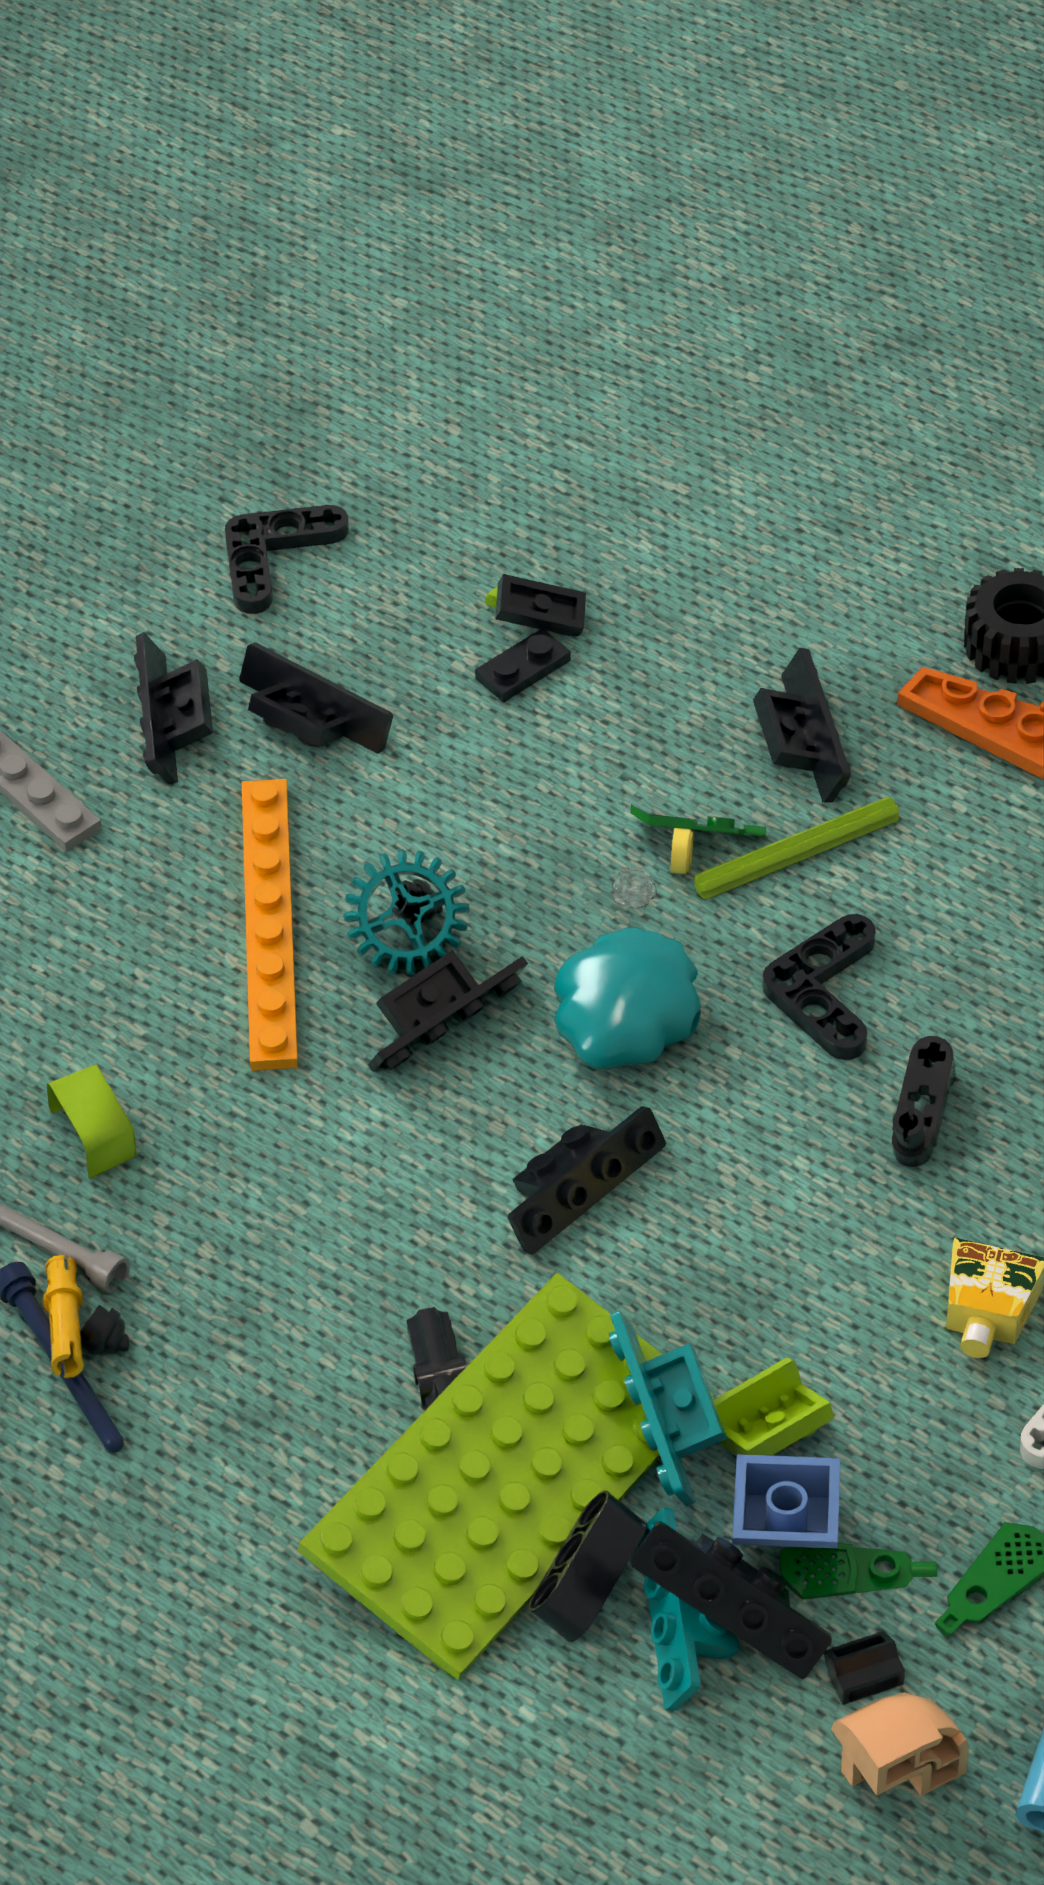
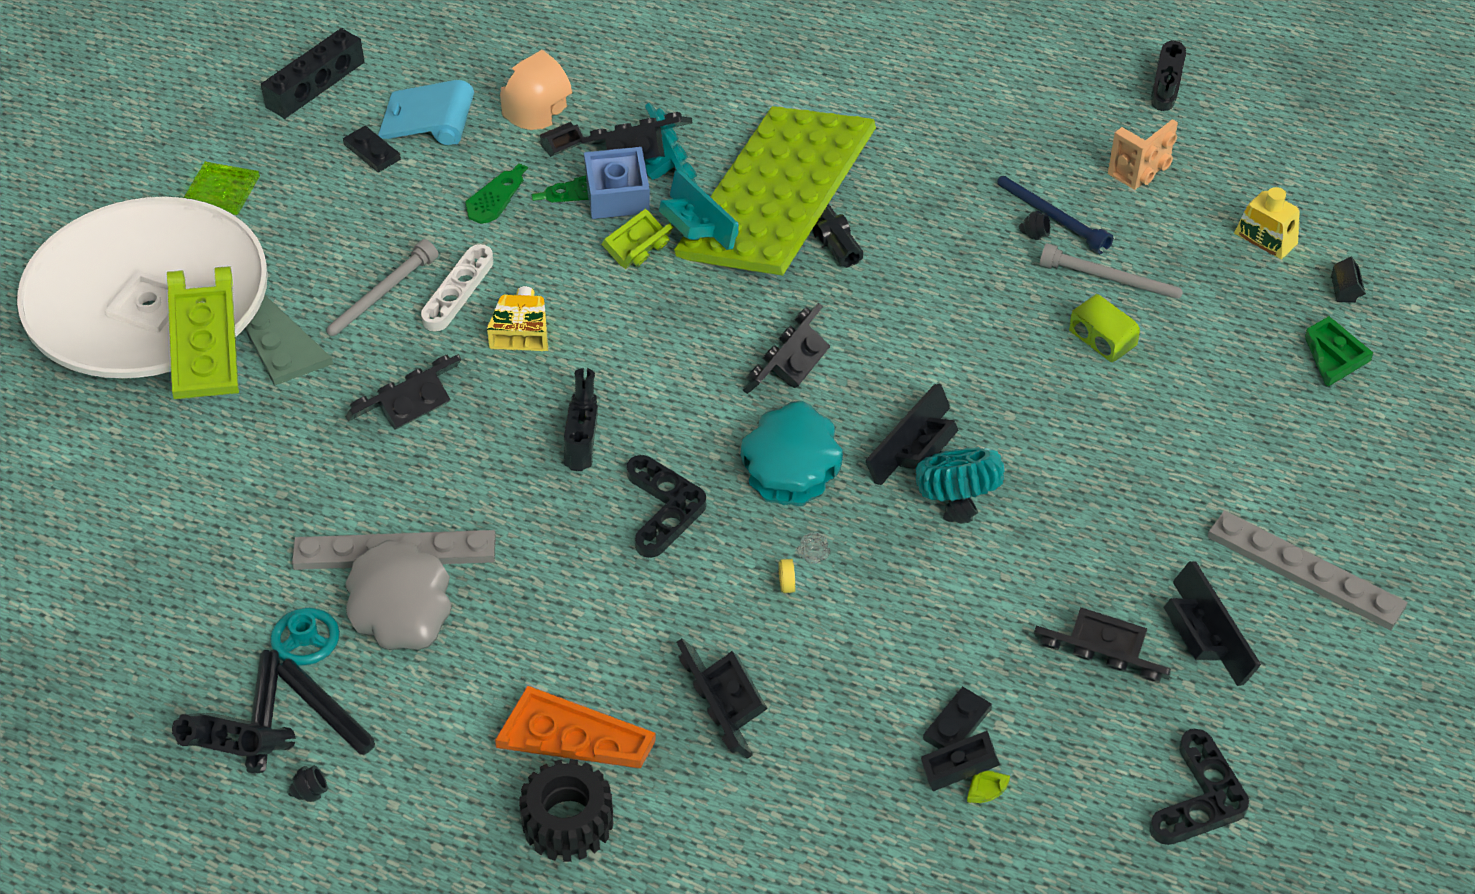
camera: 165 degrees right, 0 degrees up
(63, 1305) = (1065, 230): yellow pin -> none
(269, 926) = (1059, 489): light orange plate -> none
(587, 1566) = (719, 149): black beam -> none
(715, 824) = (782, 600): green piece -> none
(796, 848) = (704, 603): lime axle -> none

